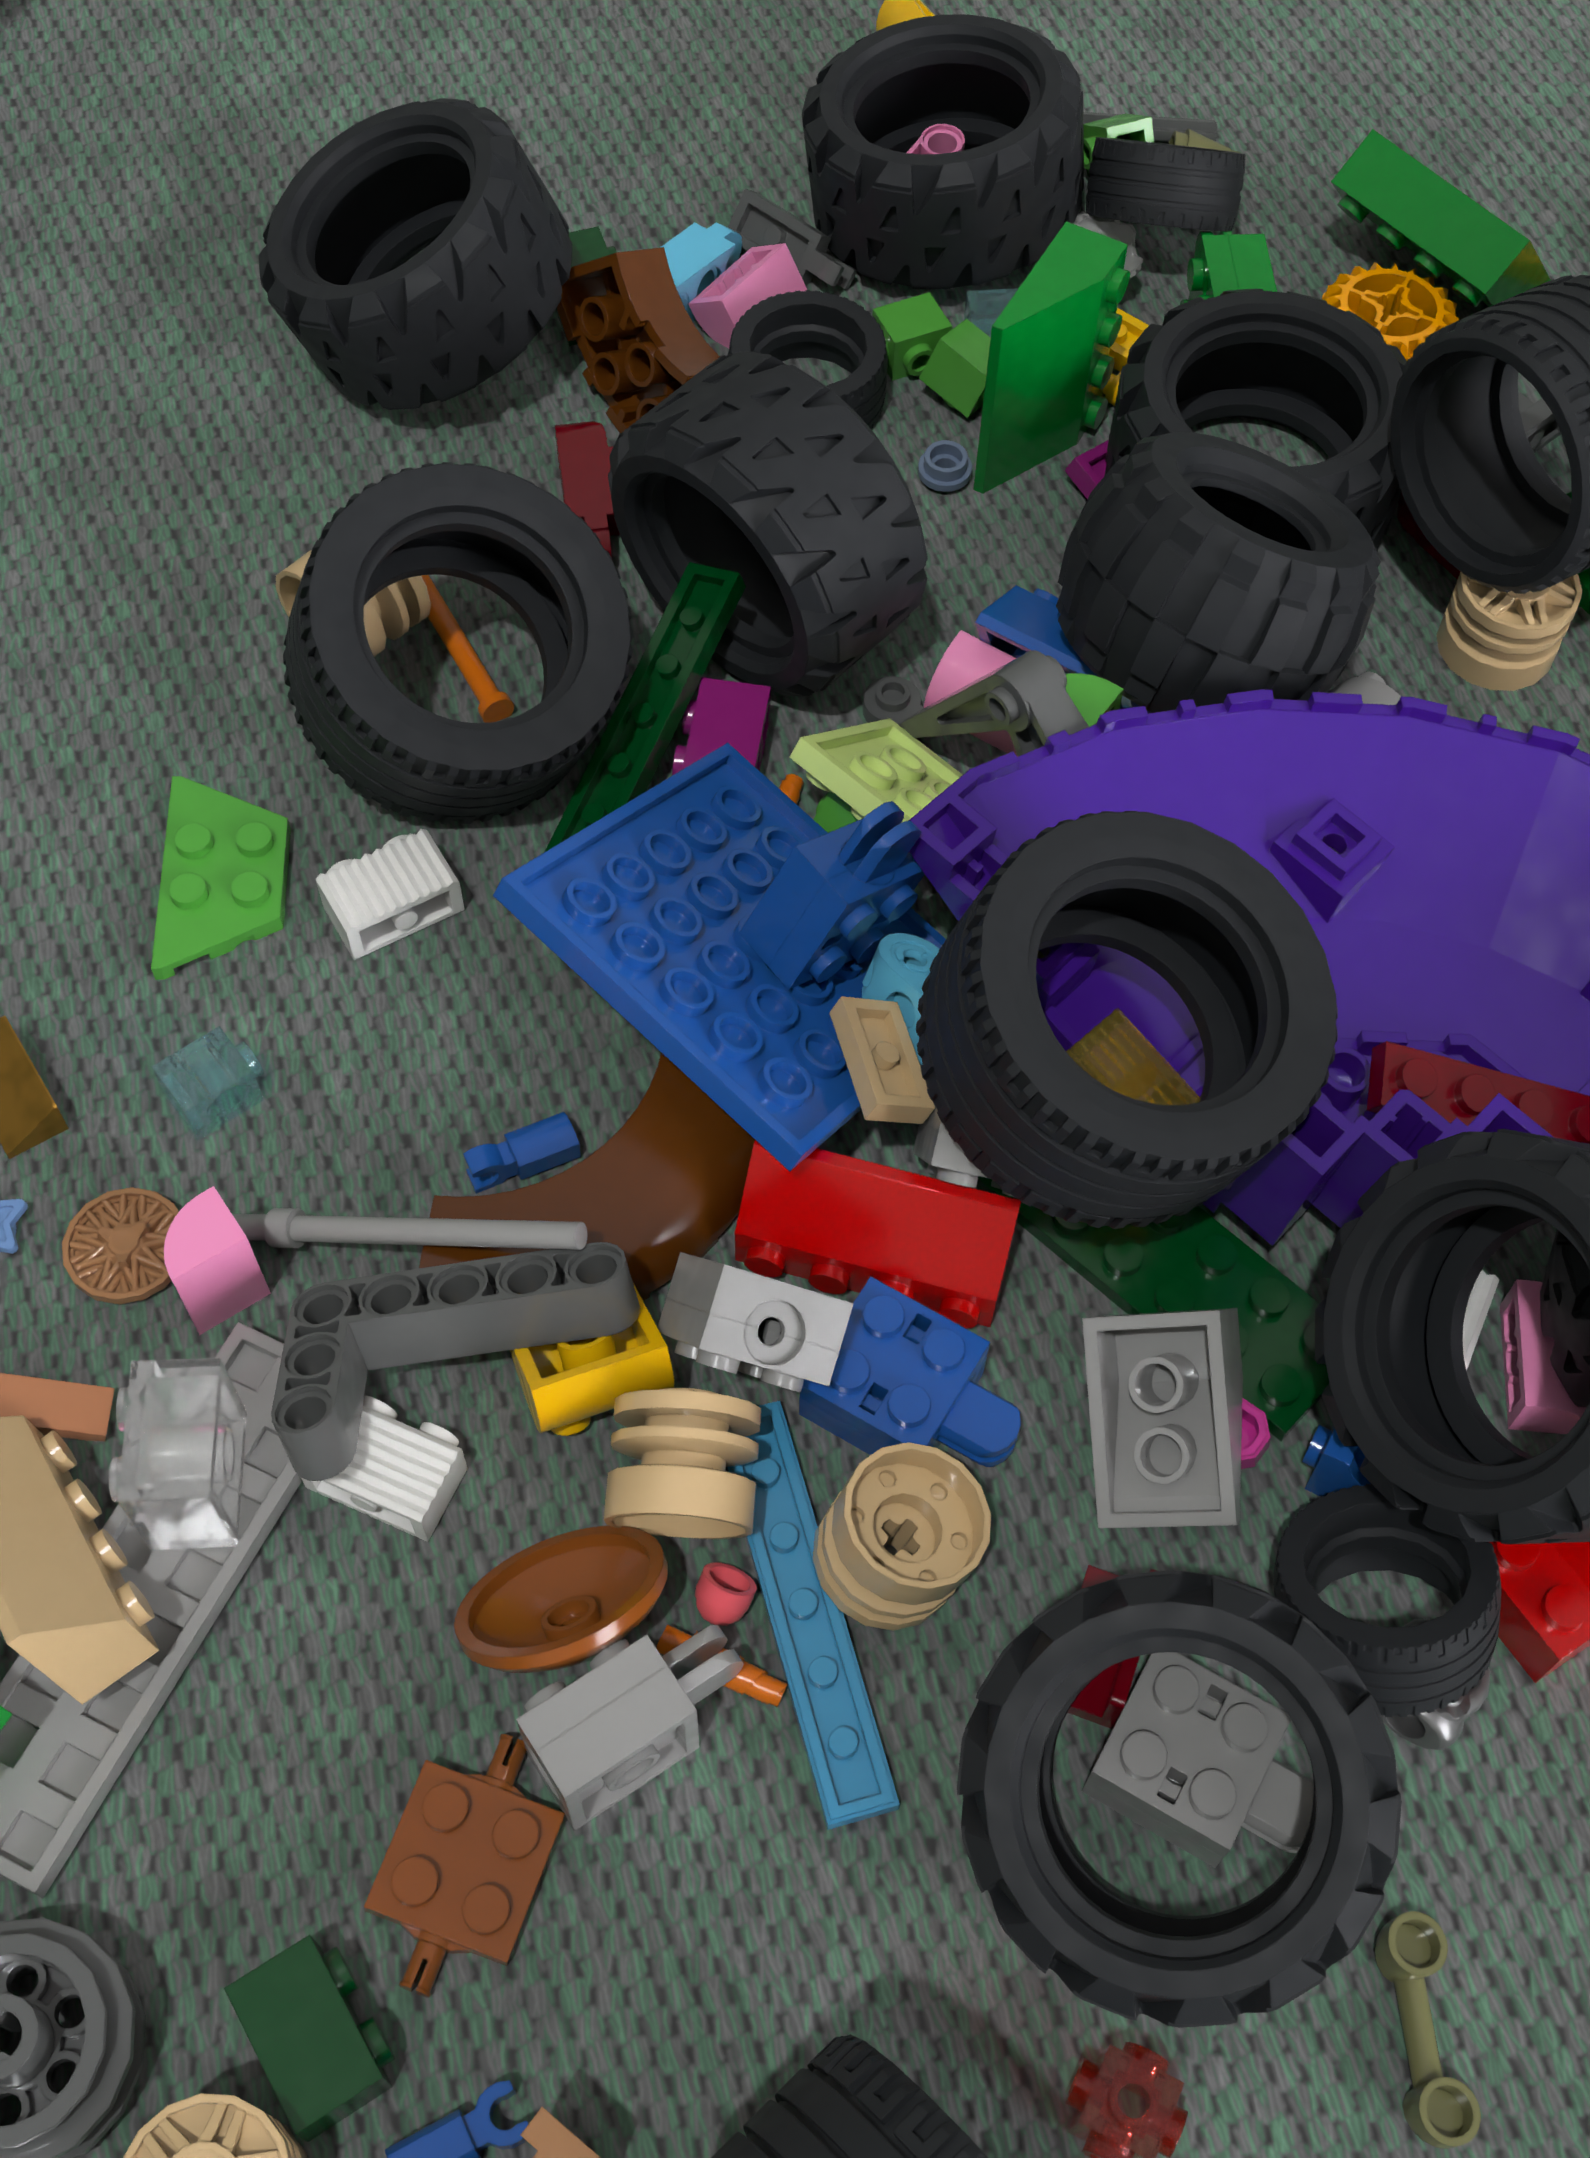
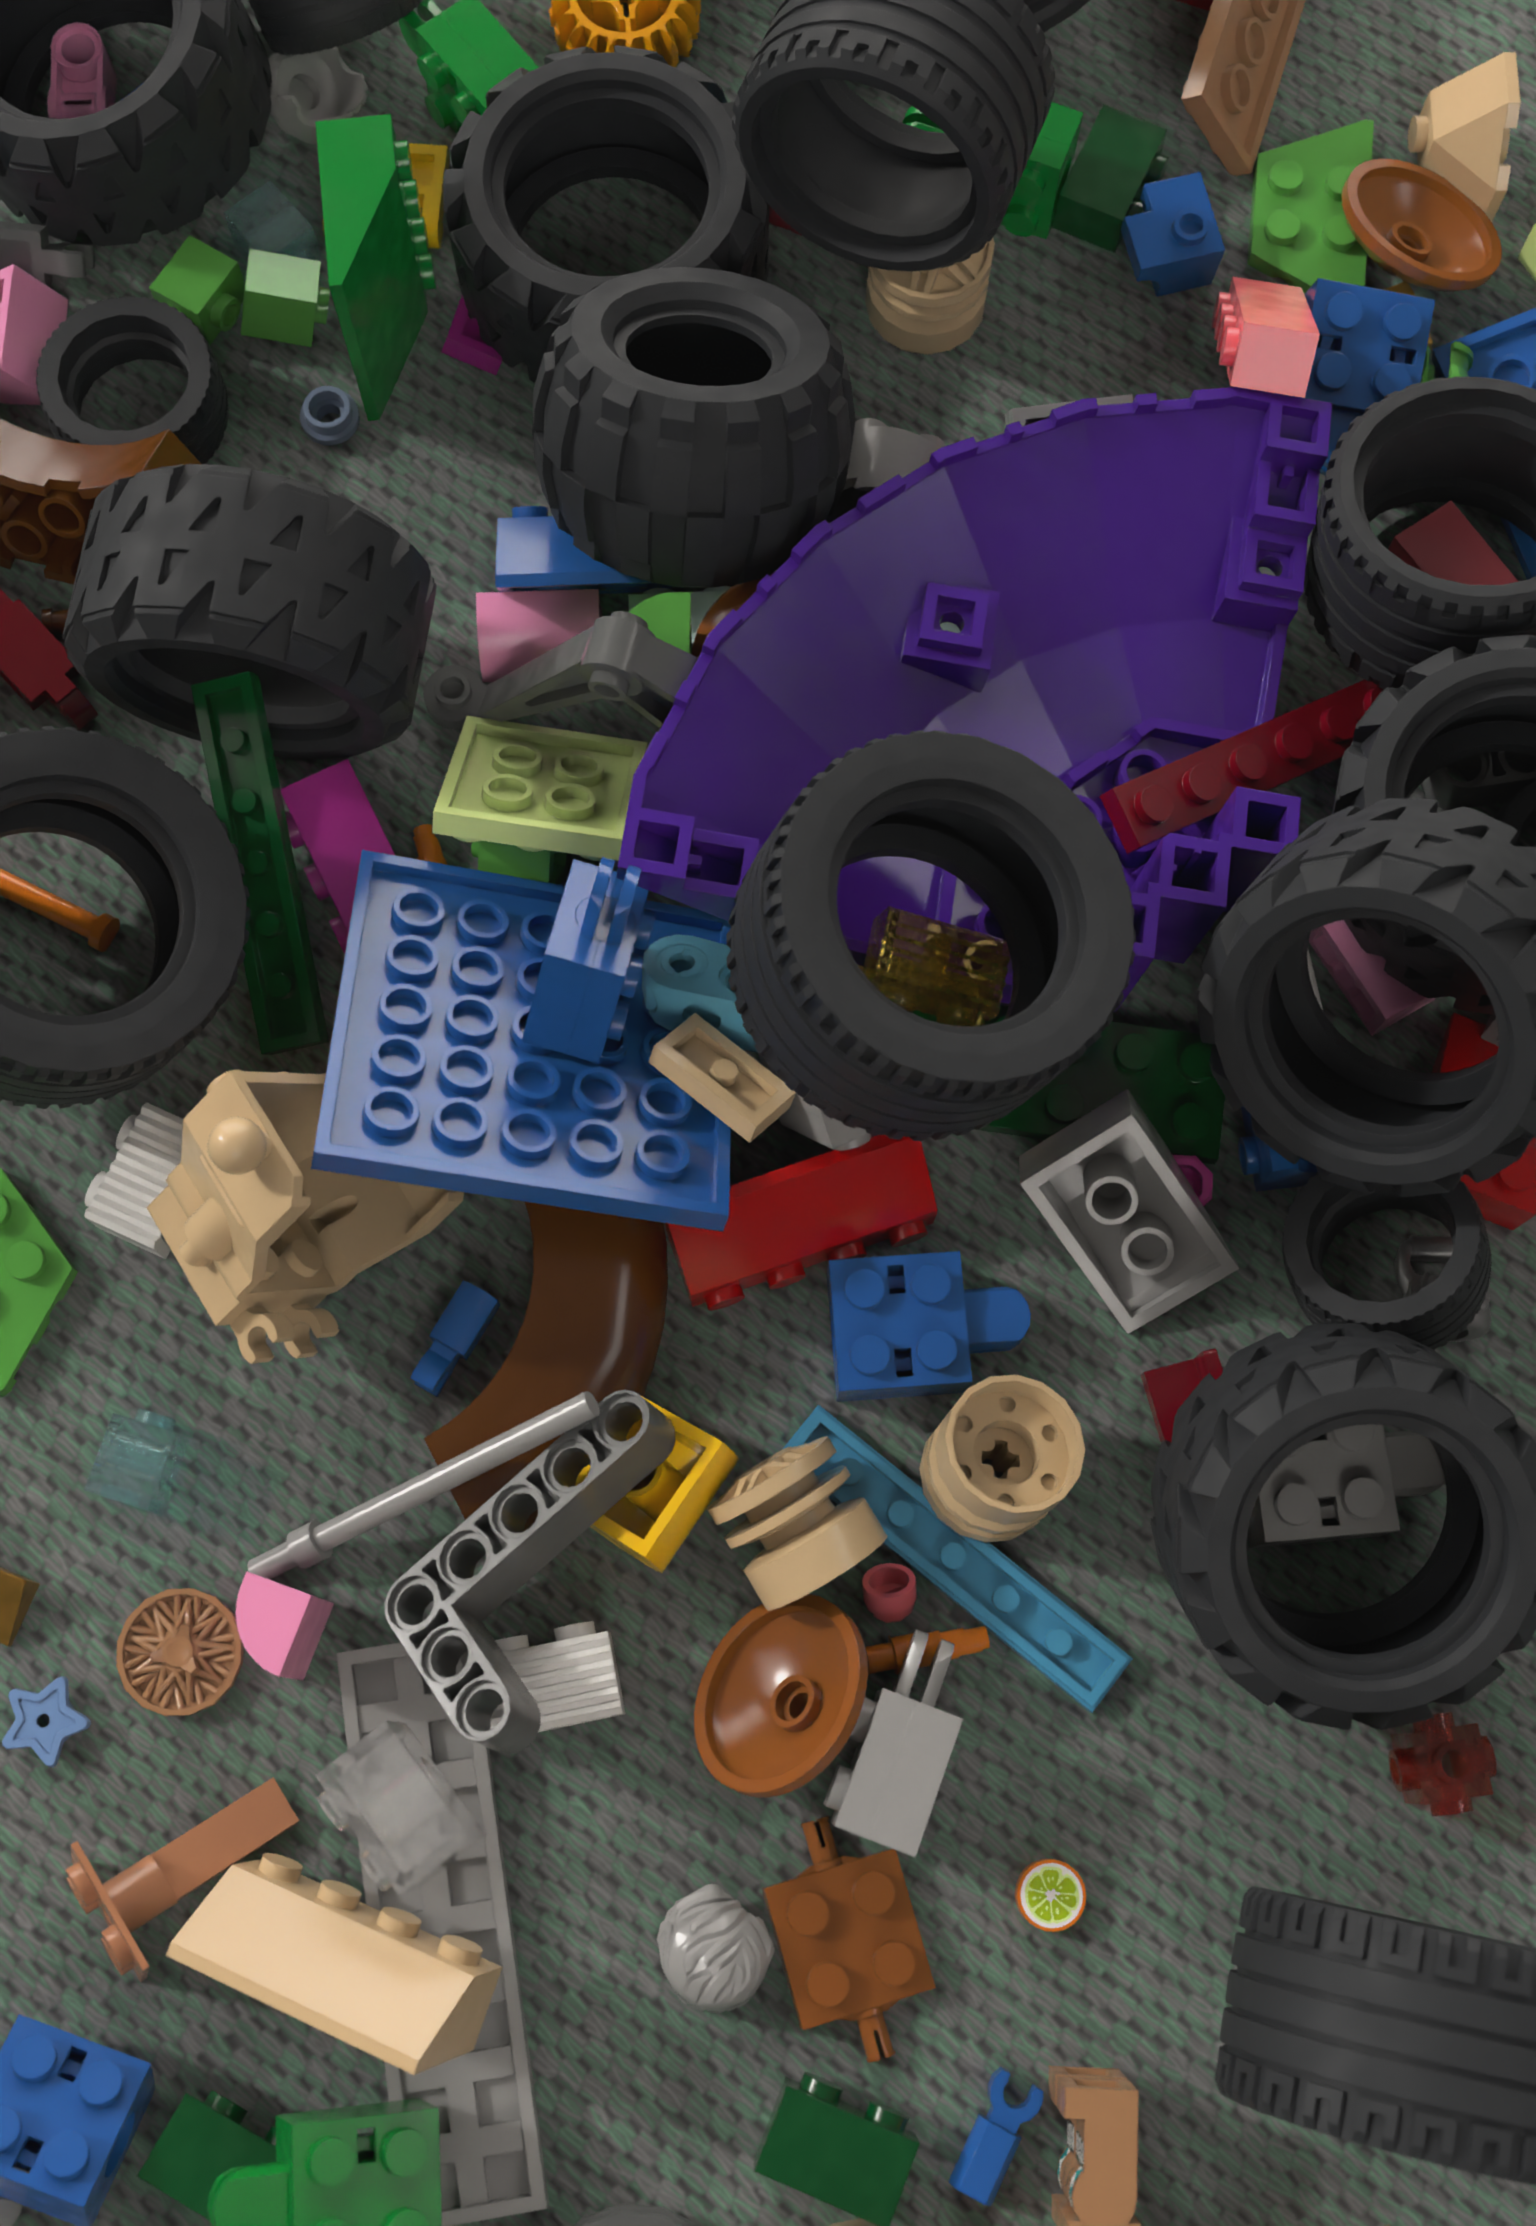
camera: 35 degrees left, 15 degrees up
(342, 1784) = (713, 1950): none -> light grey hair
(449, 967) = (264, 1228): none -> tan piece
(671, 1961) = (1050, 1895): none -> tile
(753, 1323) = (774, 1372): light grey brick -> none

